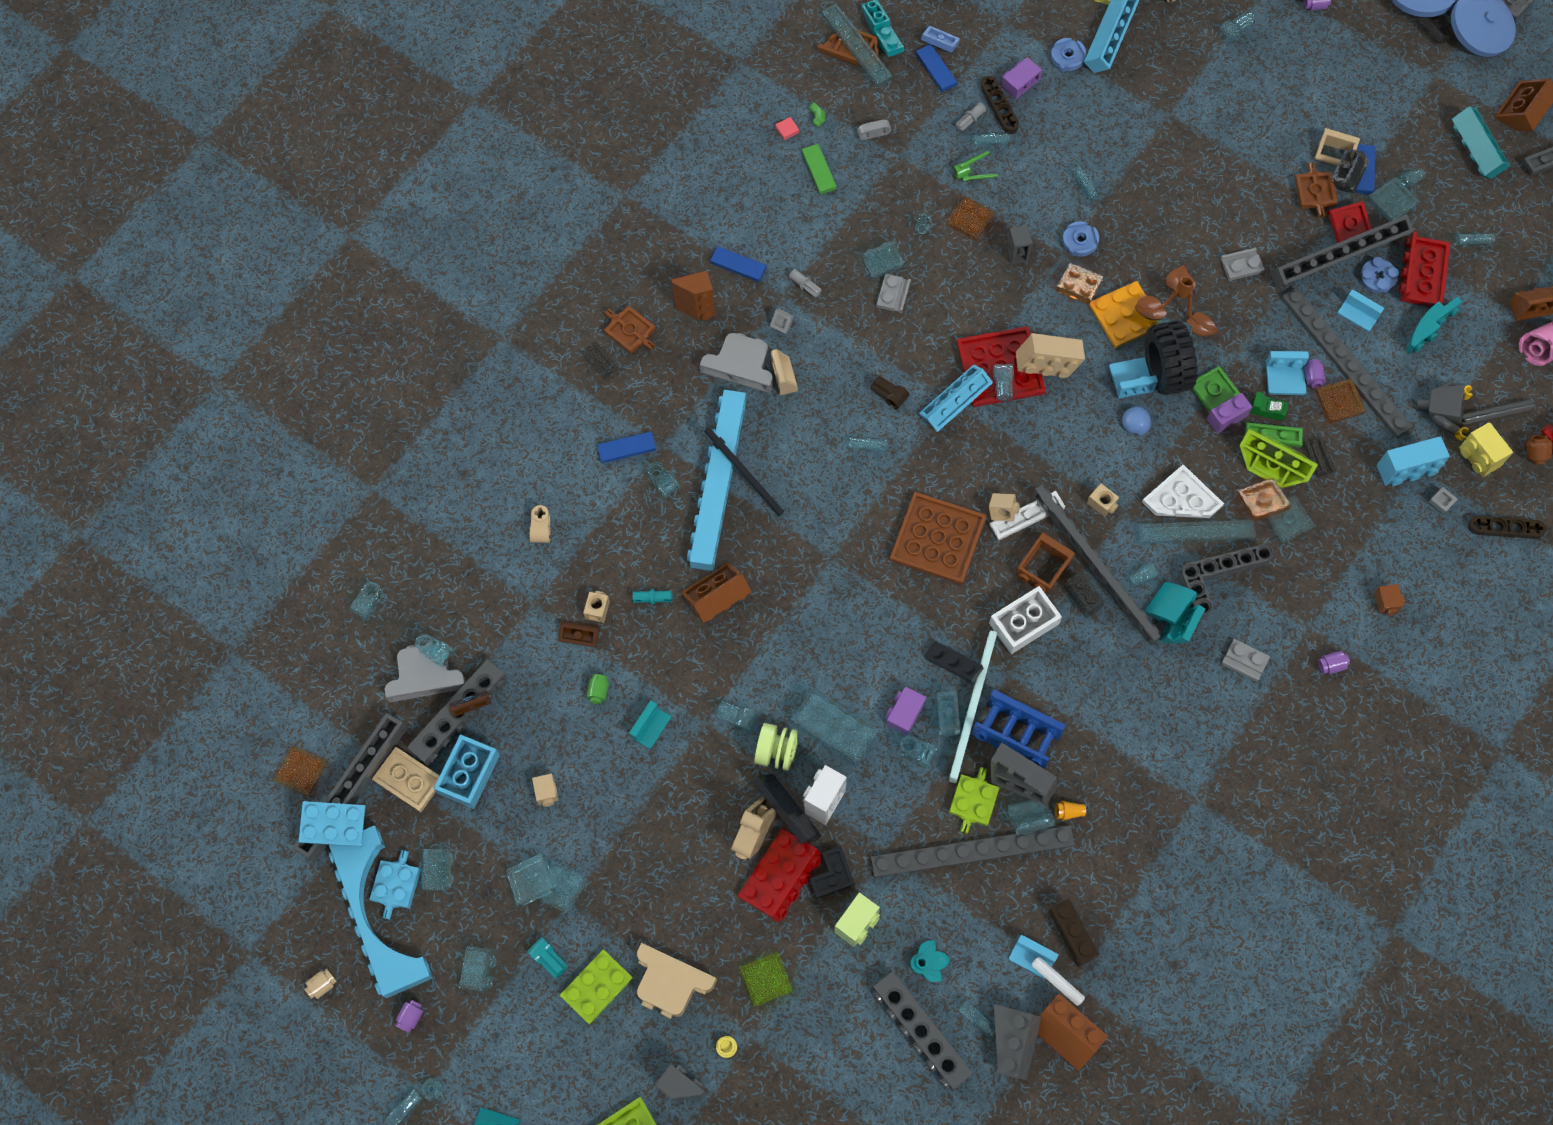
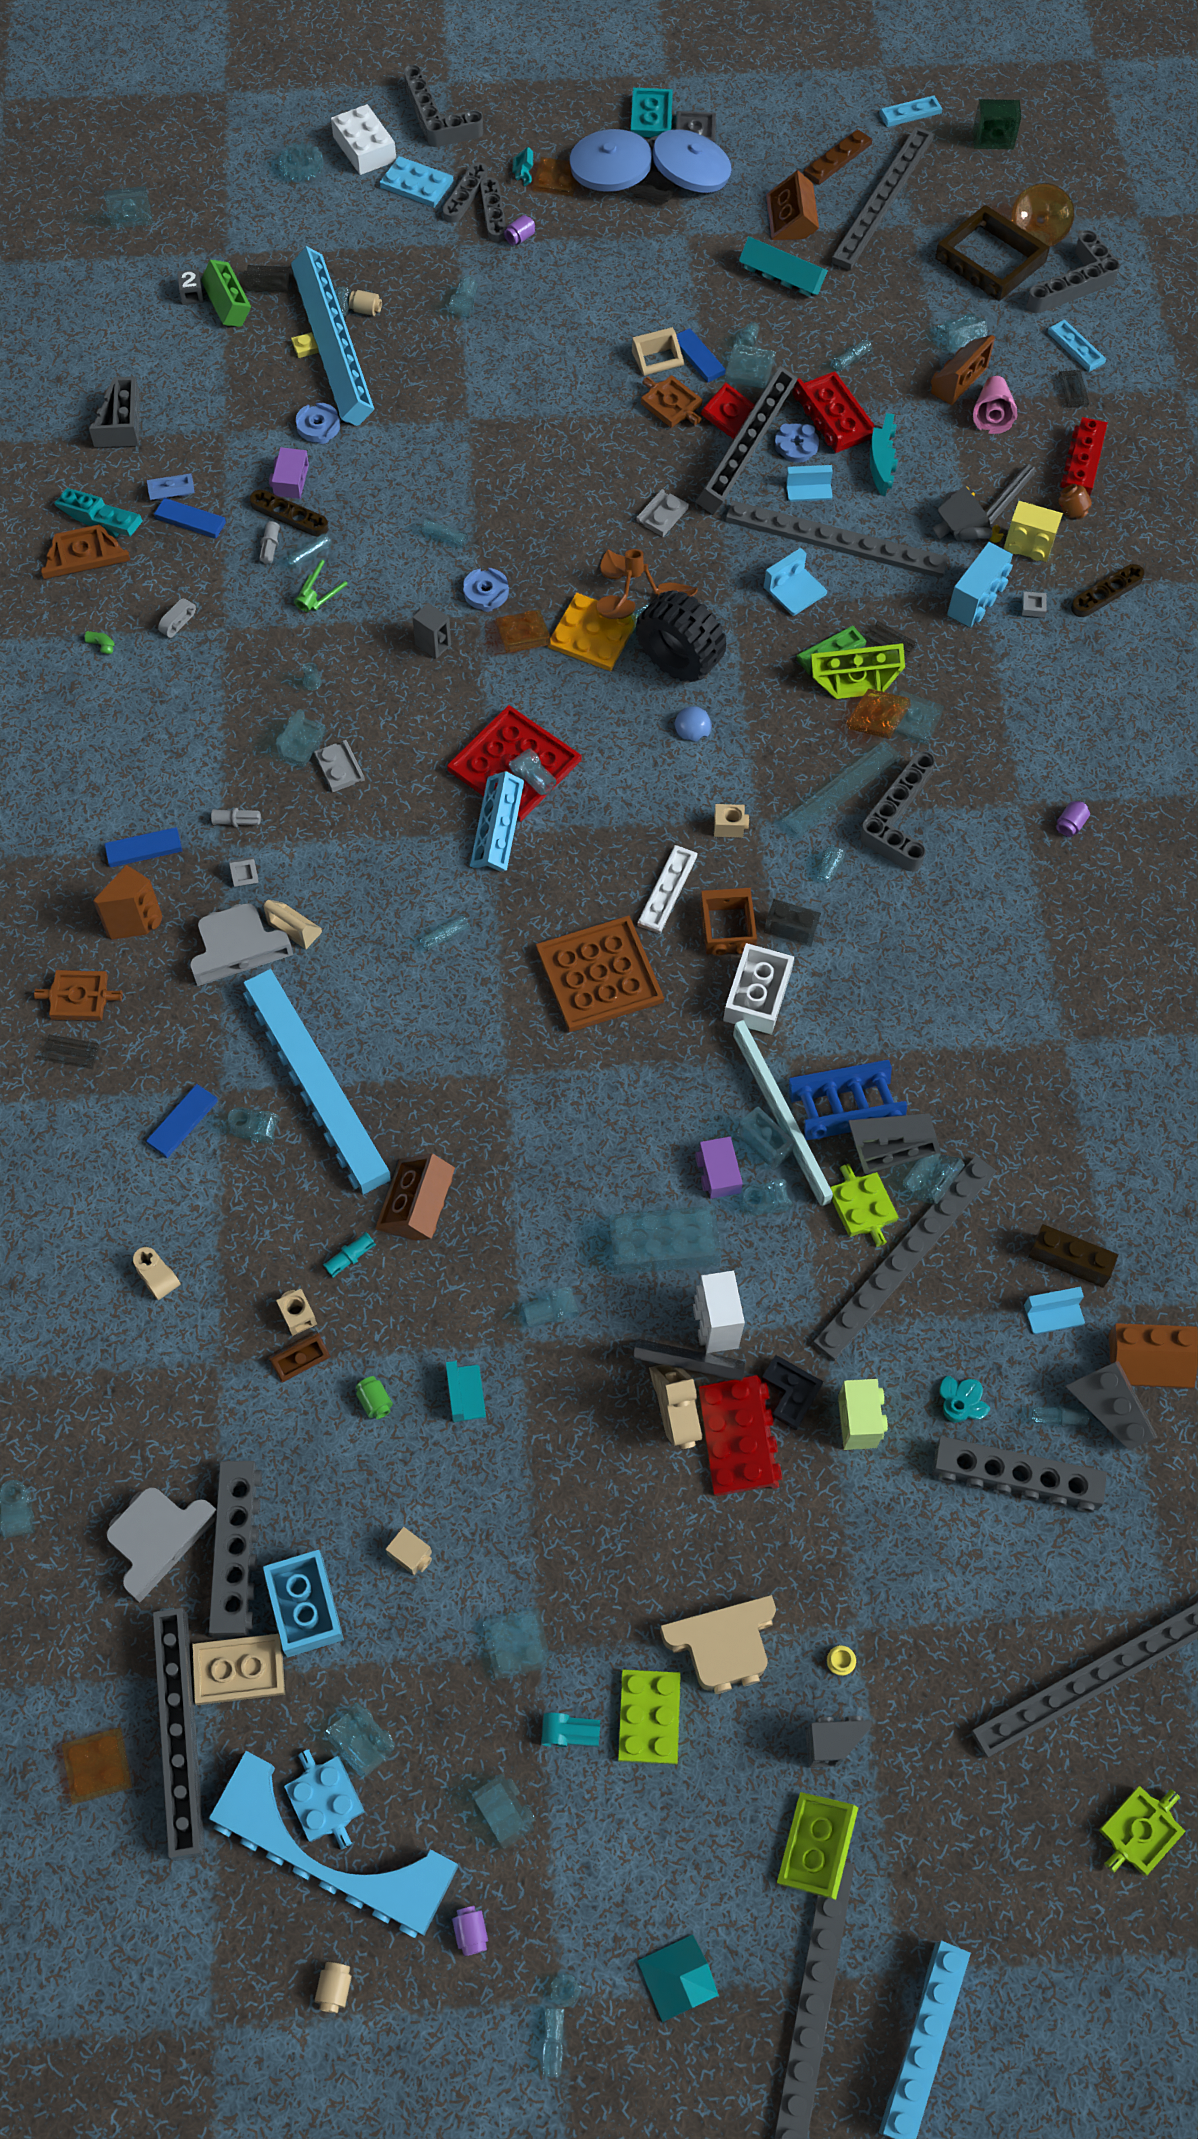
camera: 45 degrees left, 5 degrees down
(332, 824) = (196, 1789): medium azure plate -> none
(437, 651) = (153, 1497): clear light blue piece -> none
(470, 703) = (244, 1523): reddish brown slope -> none
(530, 880) = (478, 1662): clear light blue plate -> none
(719, 443) = (290, 1038): black bar -> none
(766, 979) = (819, 1555): clear neon green tile -> none
(776, 746) = (627, 1303): yellowish green wheel -> none
(787, 128) = (78, 676): coral tile -> none
(819, 169) = (149, 694): bright green tile -> none
(857, 45) = (85, 544): clear light blue tile -> none
(892, 394) = (430, 864): dark brown piece -> none
(953, 662) = (725, 1082): black plate -> none
(970, 218) = (355, 641): clear orange plate -> none
(1003, 507) = (640, 894): tan brick -> none
(1050, 355) = (559, 714): tan brick -> none
(1058, 981) = (1098, 1315): white axle -> none
(1069, 810) = (962, 1141): light orange cone -> none
(1101, 571) = (778, 886): dark grey plate -> none
(1132, 378) = (654, 686): medium azure bracket -> none
(1171, 603) = (880, 870): teal slope -> none
(1183, 496) = (801, 764): white plate -> none
(1184, 630) = (910, 882): teal slope -> none
(1214, 388) = (743, 645): bright green tile -> none
(1229, 413) = (775, 655): medium lavender brick -> none
(1245, 660) = (992, 875): light grey plate -> none
(1268, 407) = (805, 626): green leg -> none
(1314, 373) = (820, 567): medium lavender brick -> none
(1340, 401) = (864, 577): clear orange plate -> none
(1350, 170) = (690, 361): clear smoke brick -> none
(1389, 599) = (1069, 725): dark orange brick -> none

